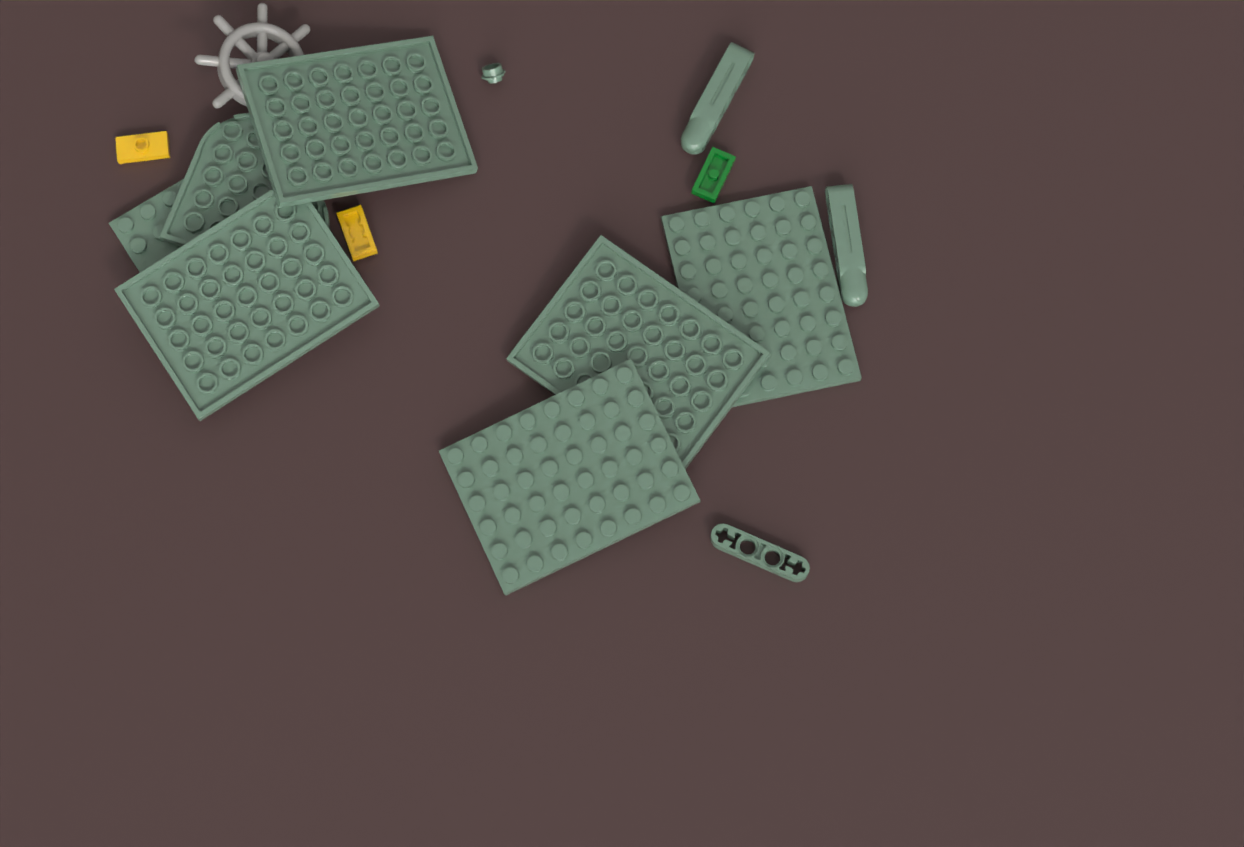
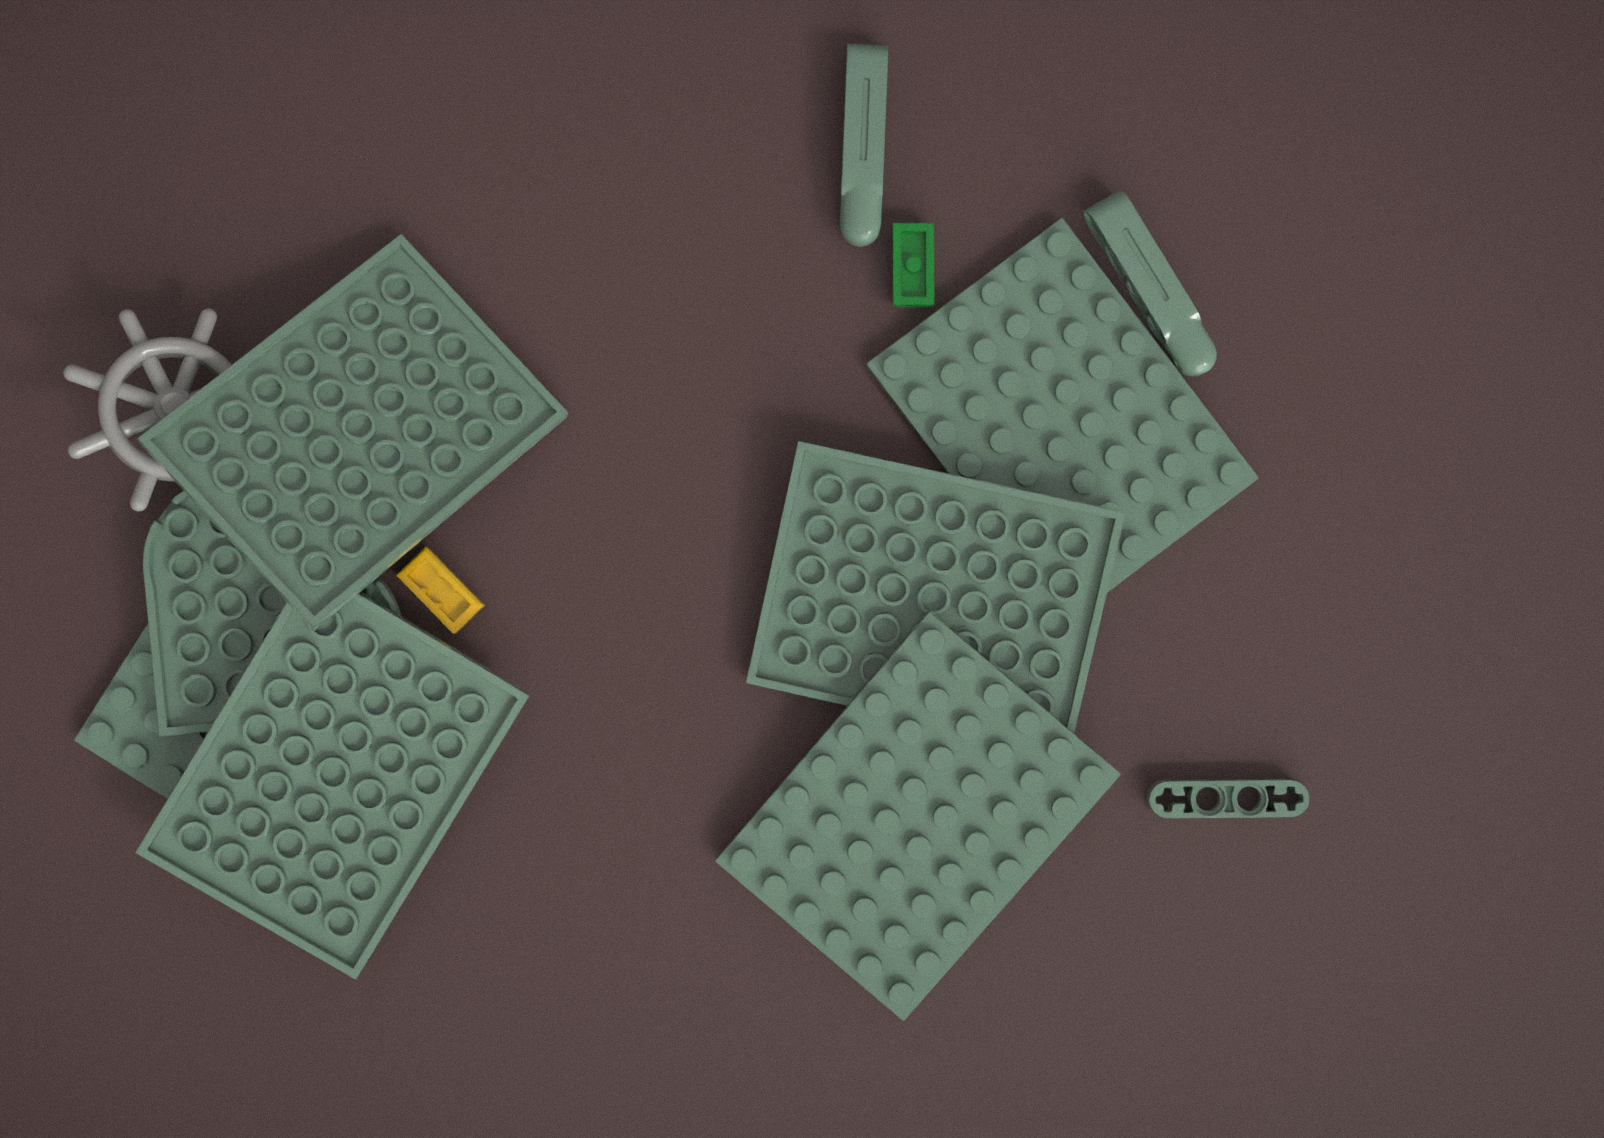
camera: 30 degrees left, 15 degrees up
(142, 147) = (62, 600): yellow plate -> none
(493, 73) = (517, 251): sand green plate -> none

